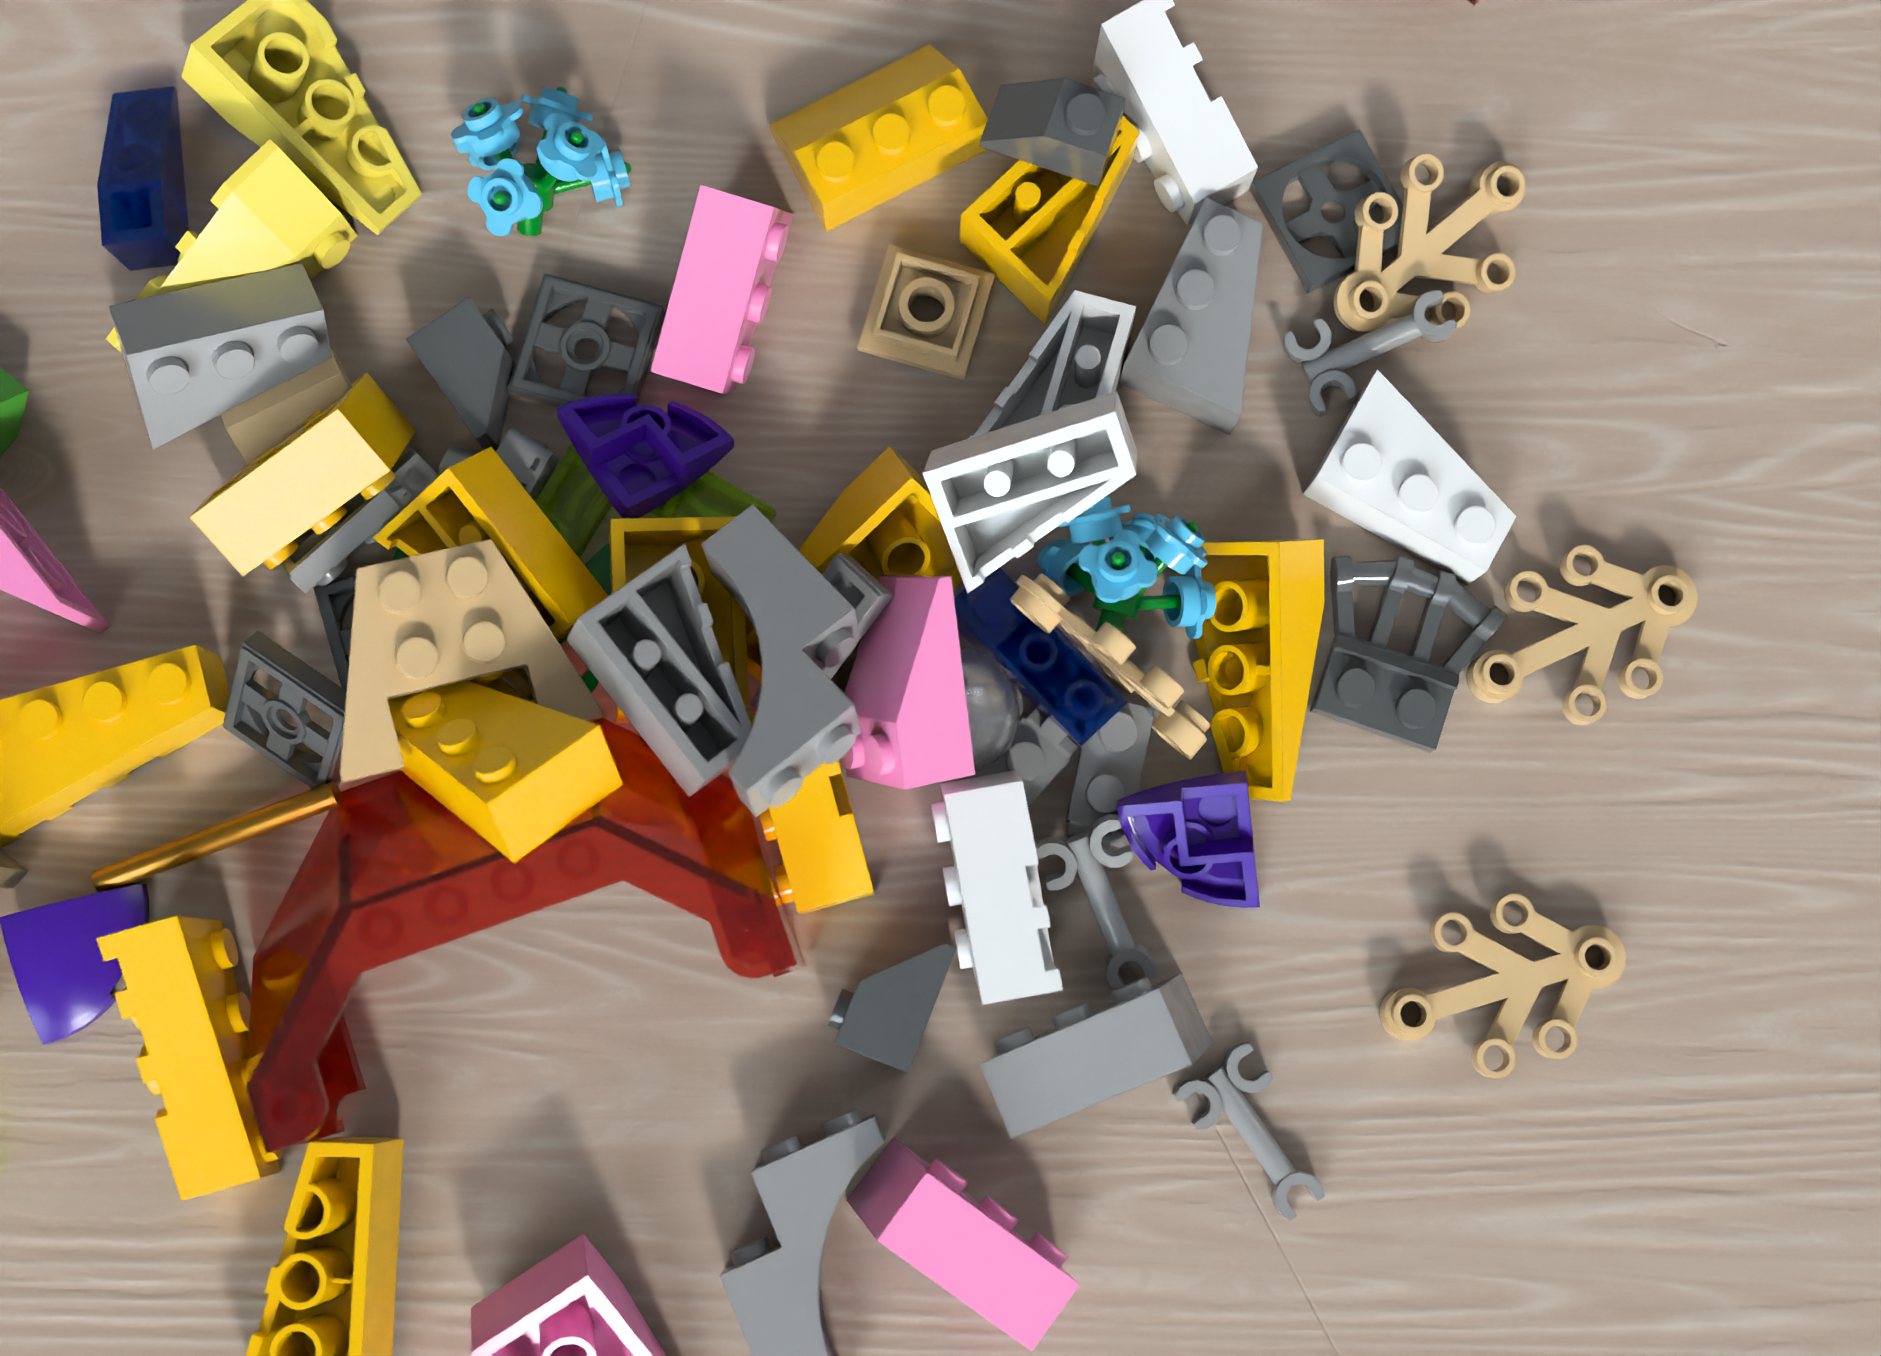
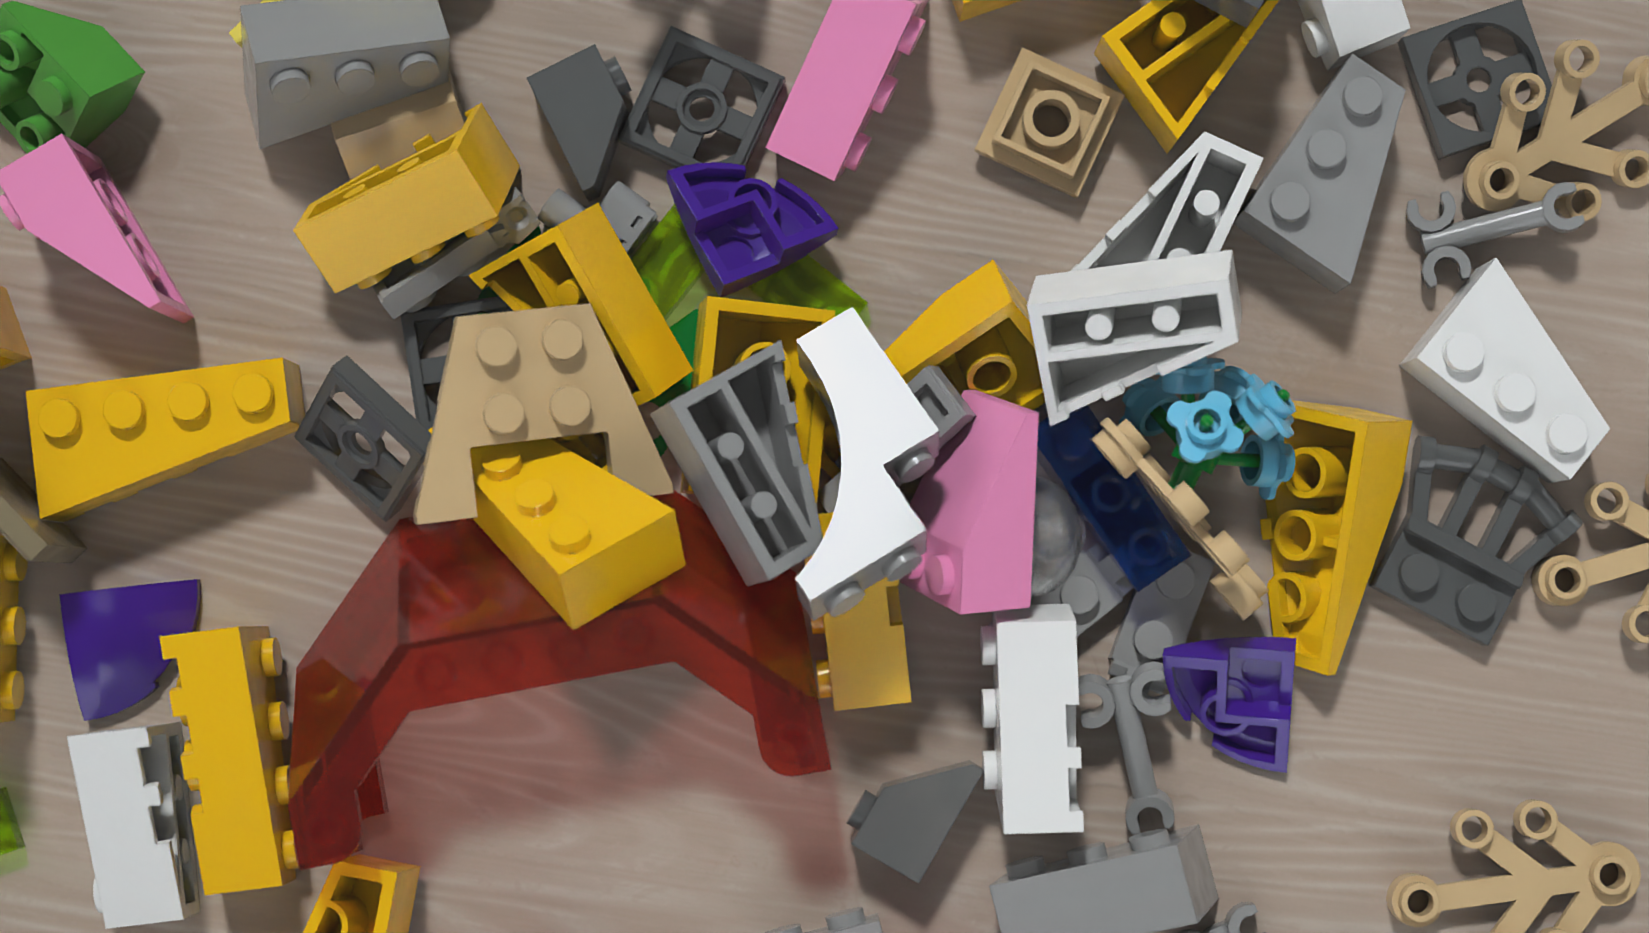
camera: 15 degrees right, 5 degrees up
(102, 1136) = (137, 823): none -> white wedge
(217, 837) = (276, 546): pearl gold bar -> none

